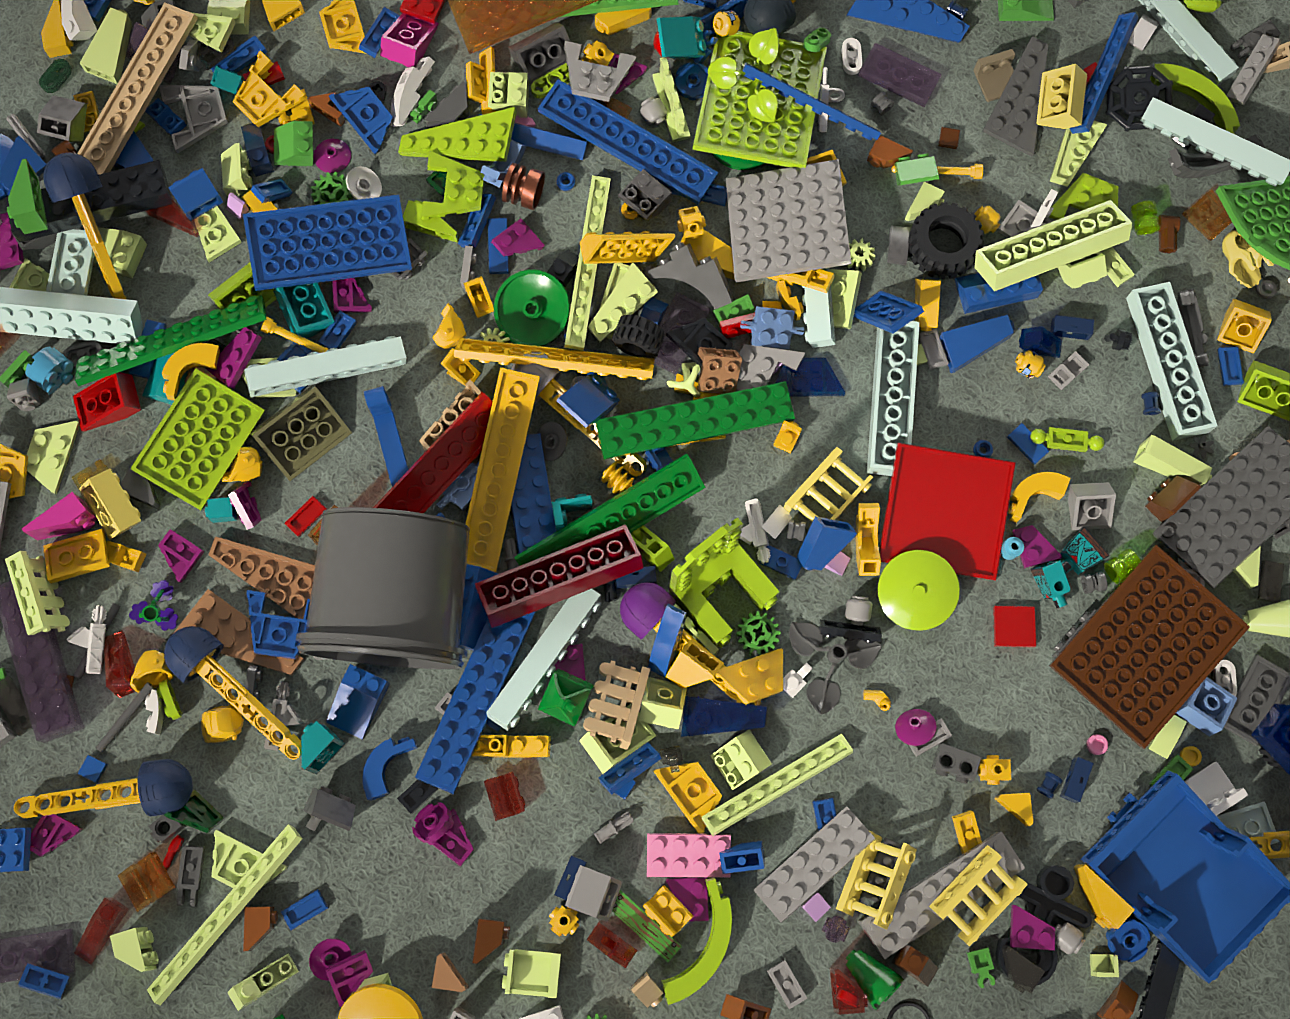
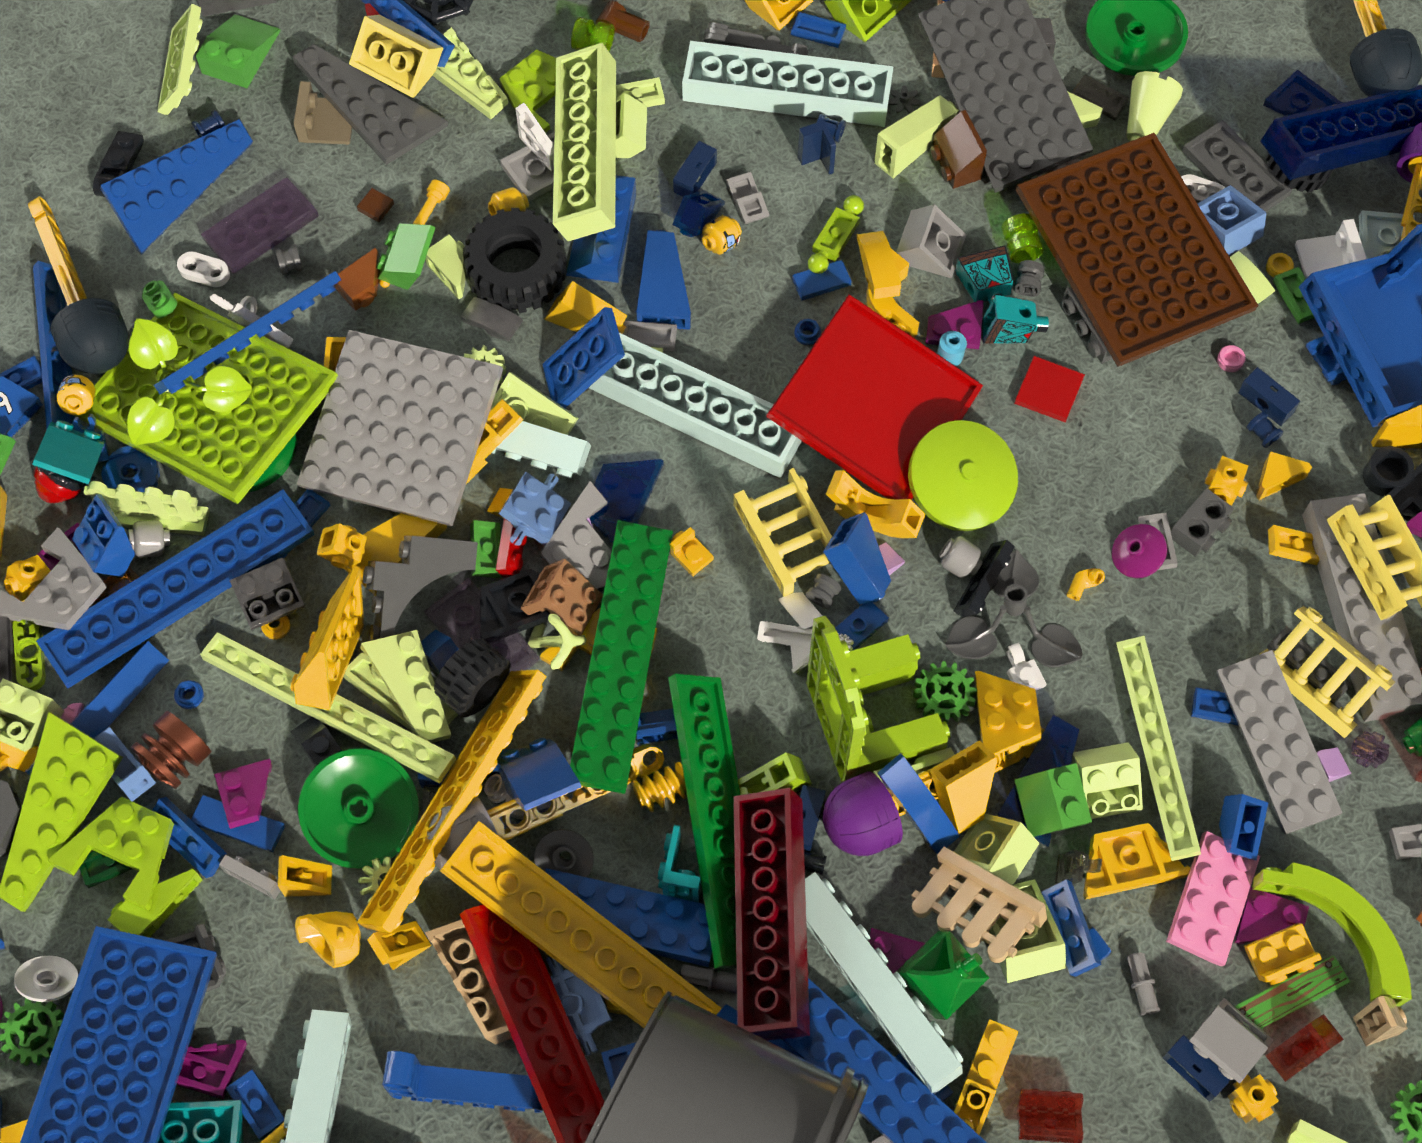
camera: 65 degrees left, 10 degrees down
(637, 85) = (103, 540): none -> blue slope
(708, 727) = (1053, 800): none -> bright green slope
(789, 303) = (494, 478): yellow slope -> none
(1050, 474) = (879, 265): none -> yellow slope
(1121, 339) = (734, 126): black piece -> none
(1128, 397) = (816, 144): none -> dark blue panel

